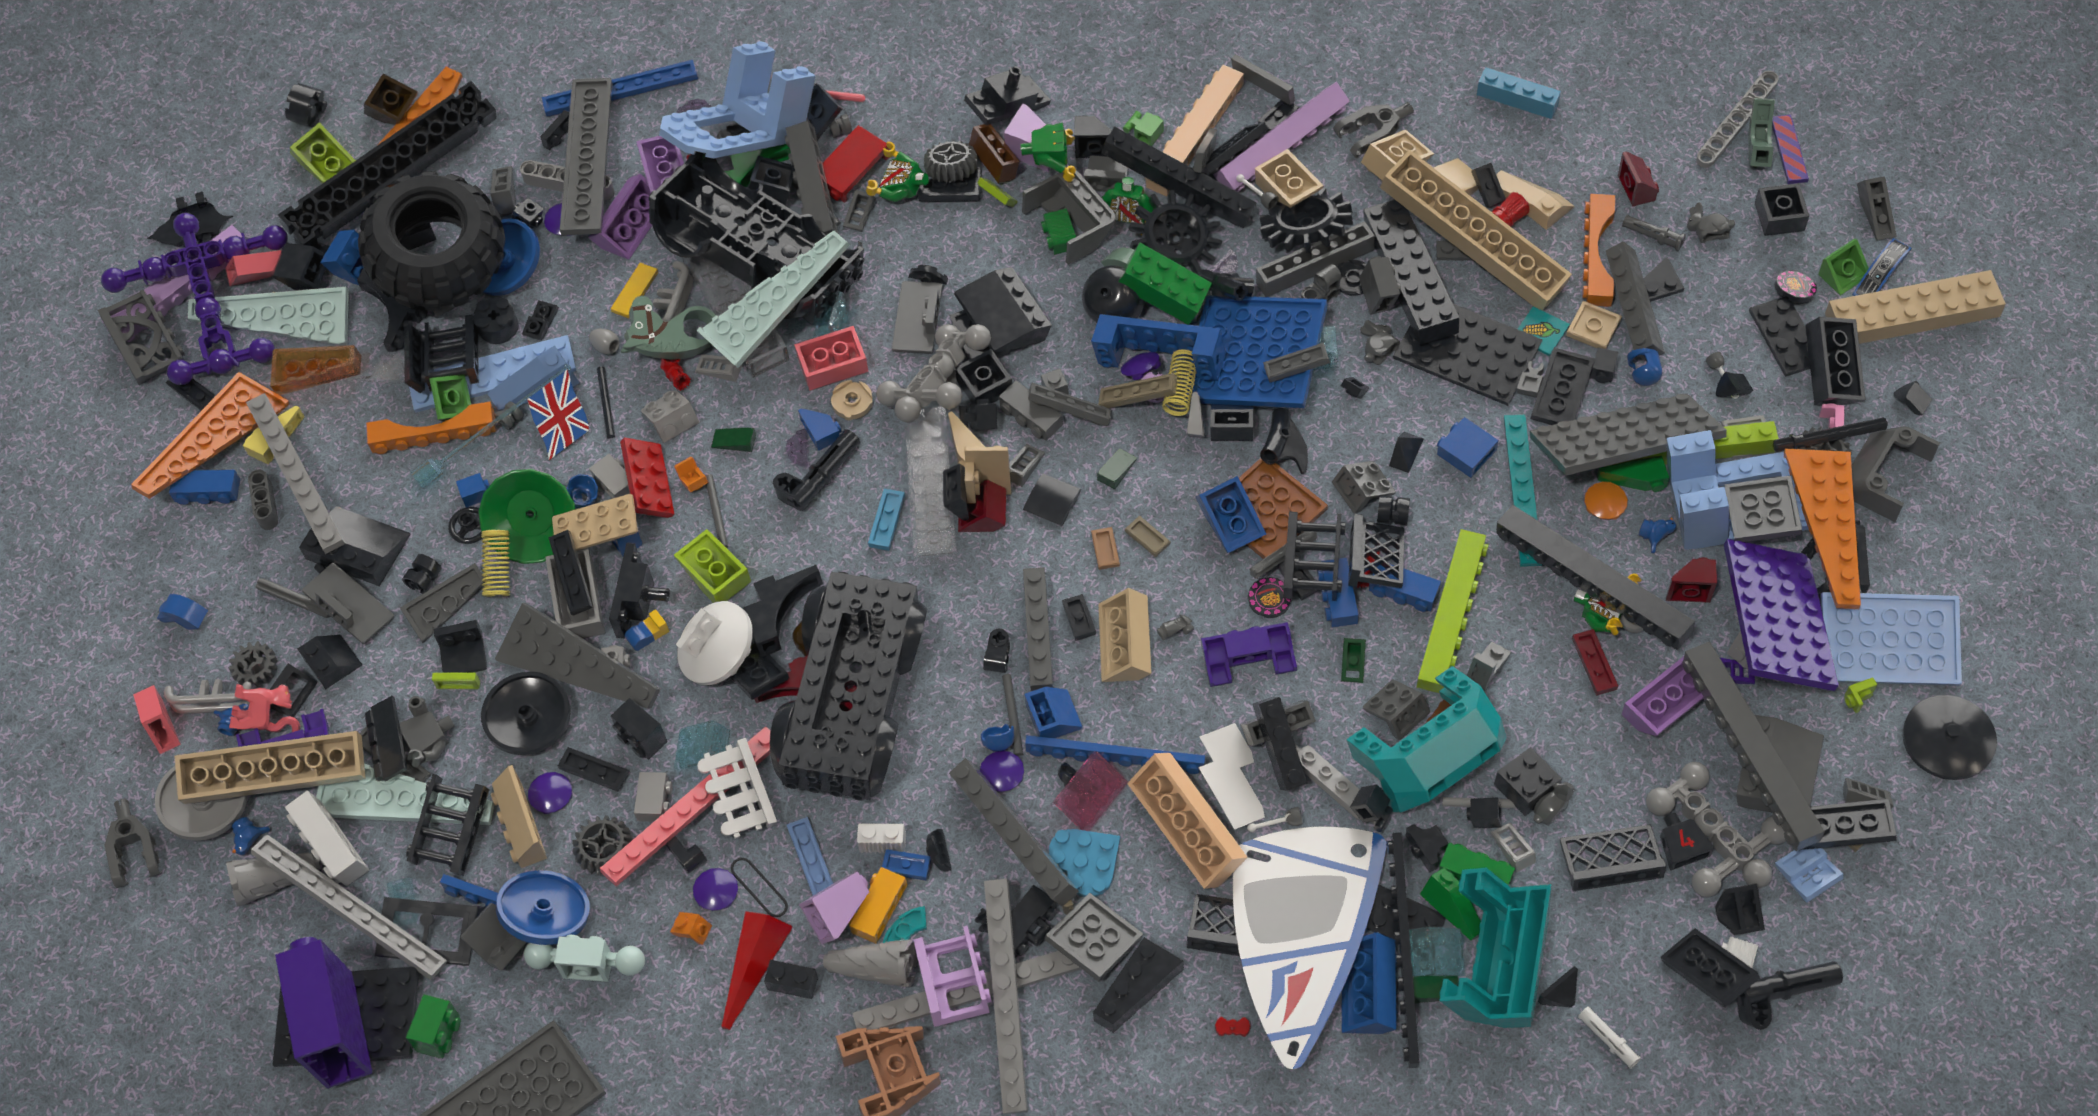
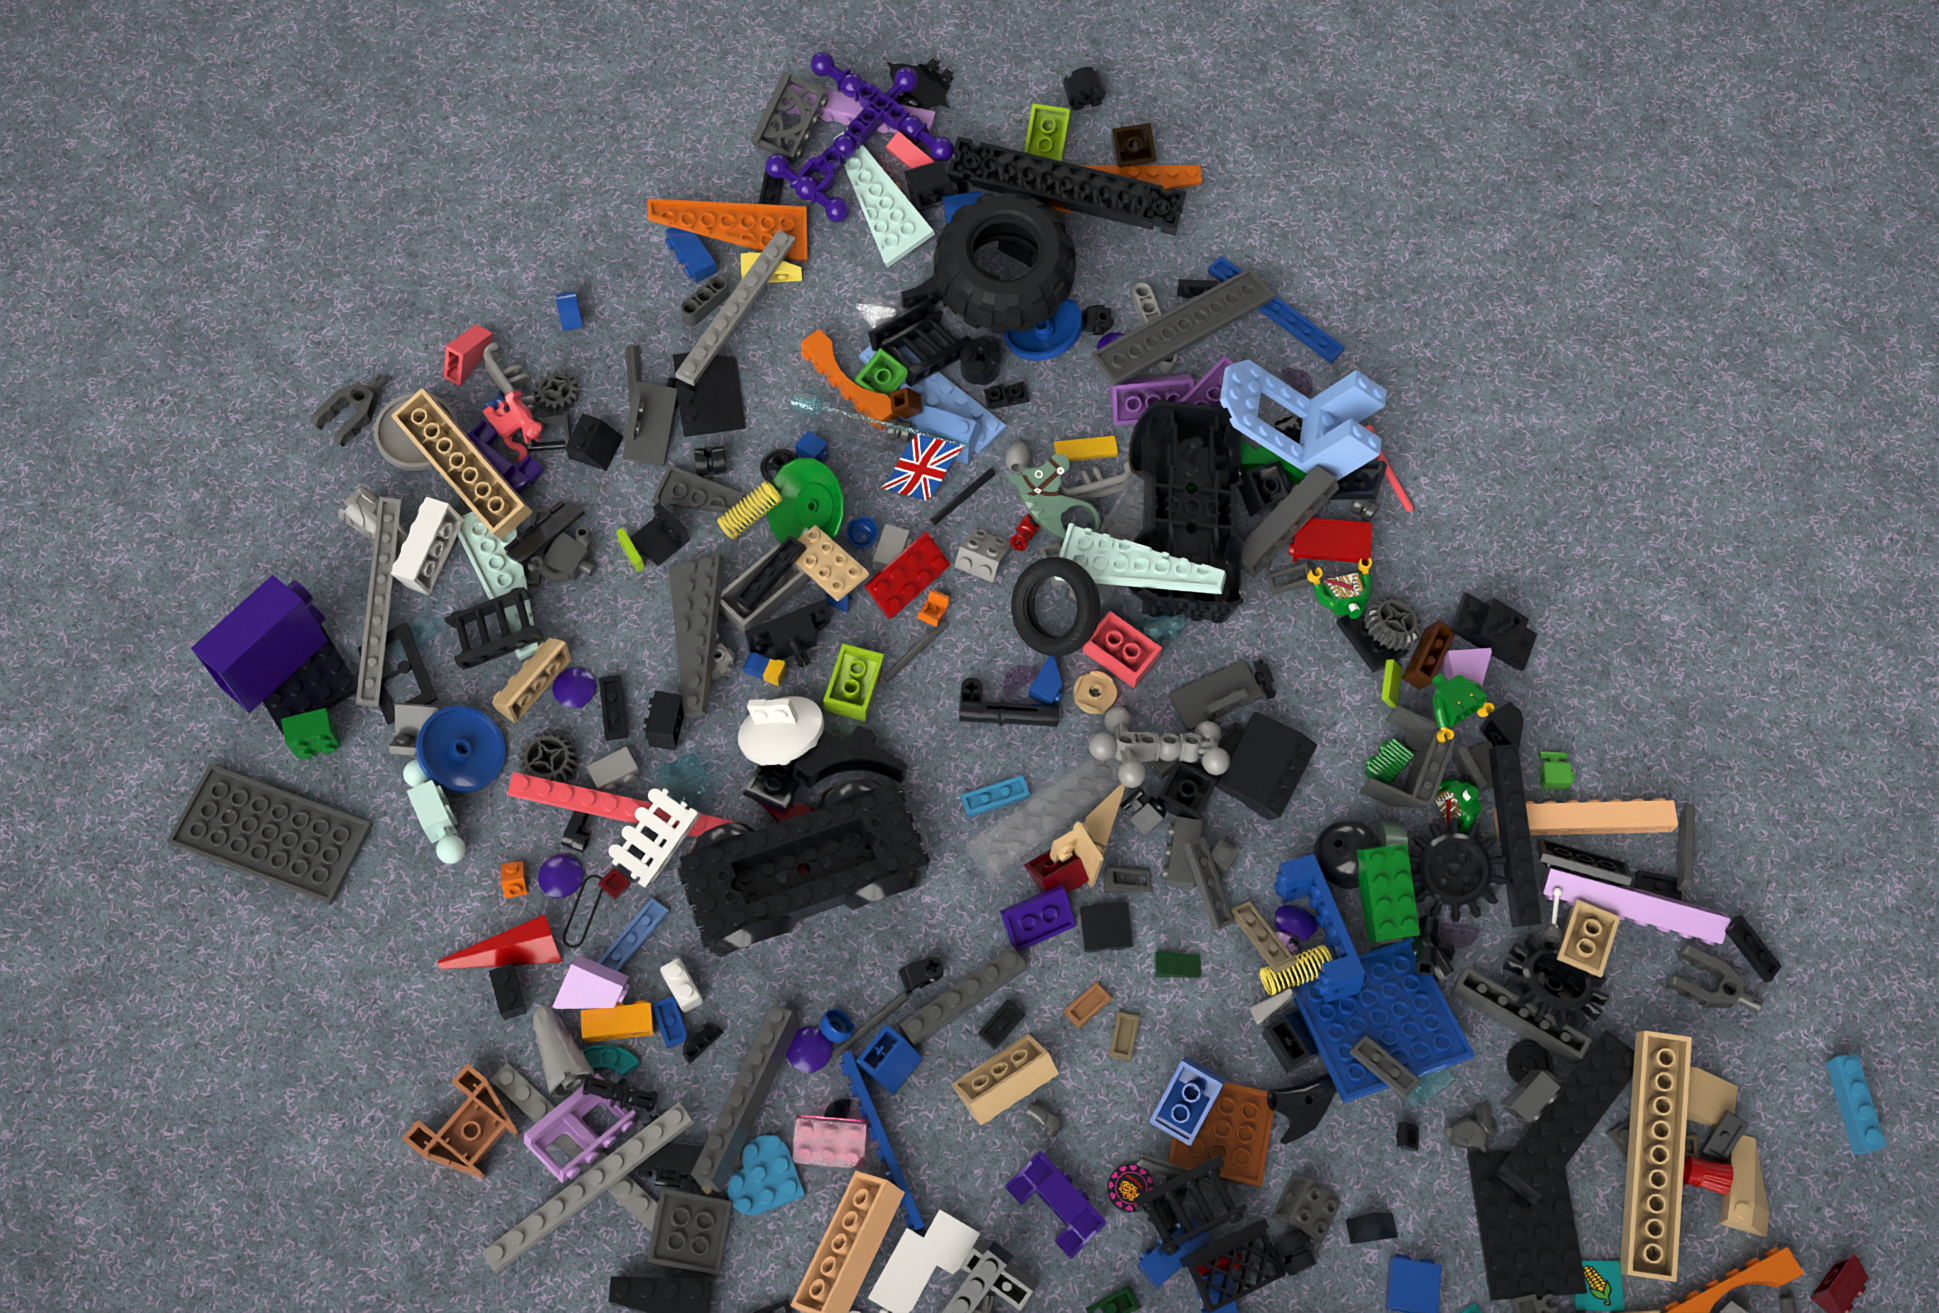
camera: 50 degrees right, 5 degrees up
(246, 835) = (405, 485): blue animal -> none
(312, 366) = (845, 255): clear orange wedge -> none
(471, 892) = (448, 686): blue plate -> none
(492, 391) = (906, 402): none -> reddish brown brick
(503, 190) = (1109, 285): dark grey slope -> none
(525, 713) = (630, 622): black dish -> none
(734, 439) = (993, 621): dark green slope -> none
(753, 848) = (614, 884): none -> dark red plate
(778, 345) = (1087, 606): none -> black tyre
(942, 930) = (619, 1092): none -> black piece
(955, 491) = (1042, 840): black tile -> none
(1012, 540) = (1038, 918): none -> dark purple plate
(1205, 150) = (1562, 841): dark grey tile -> none
(1325, 284) = (1493, 1042): dark grey piece -> none
(1366, 84) = (1753, 948): none -> black plate
(1388, 151) = (1695, 1019): tan slope -> none

